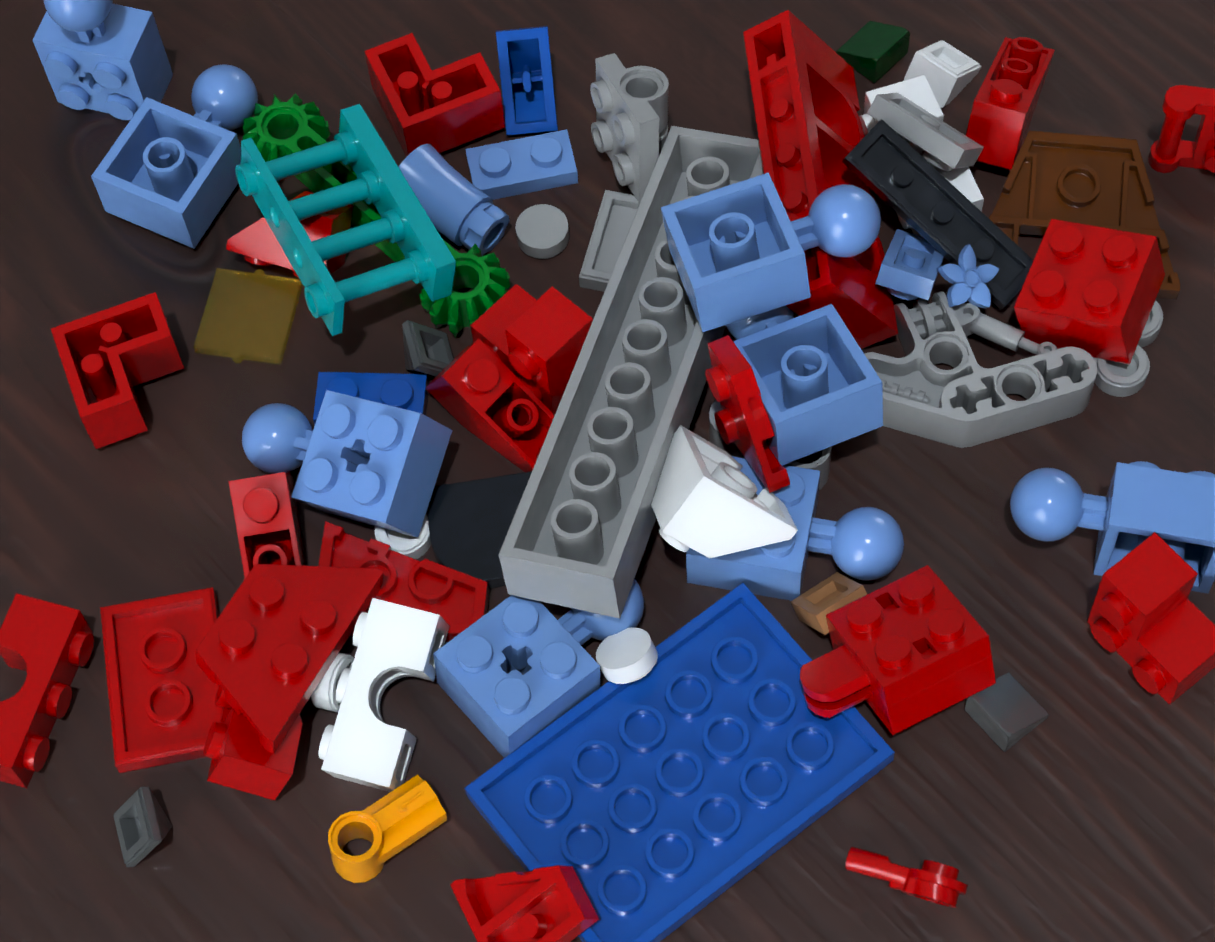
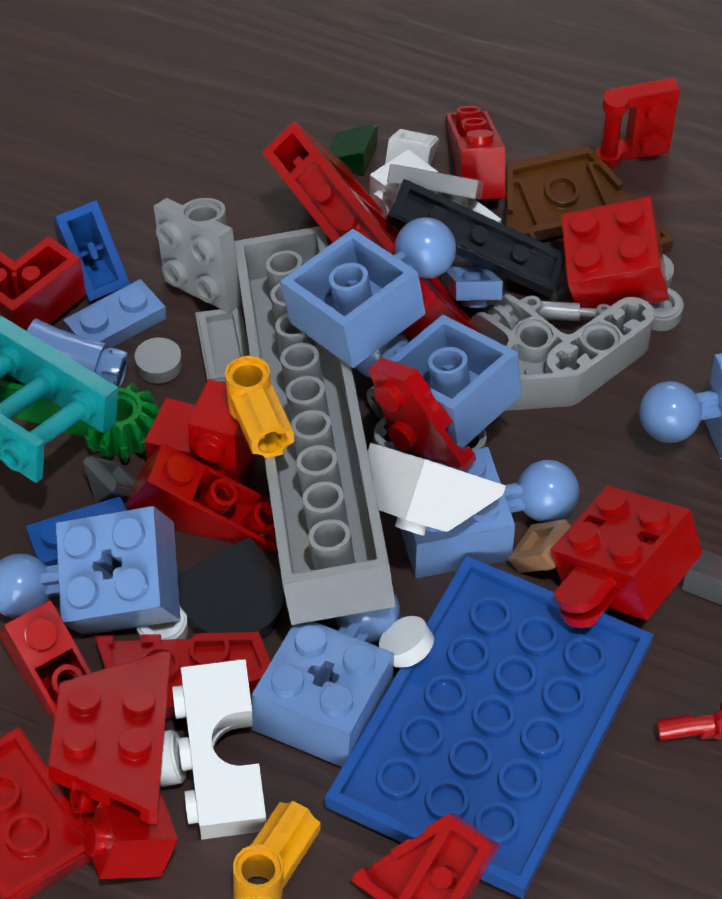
camera: 30 degrees left, 10 degrees down
(573, 342) = (257, 406): none -> light orange piece
(968, 280) = (522, 278): medium blue plant -> none

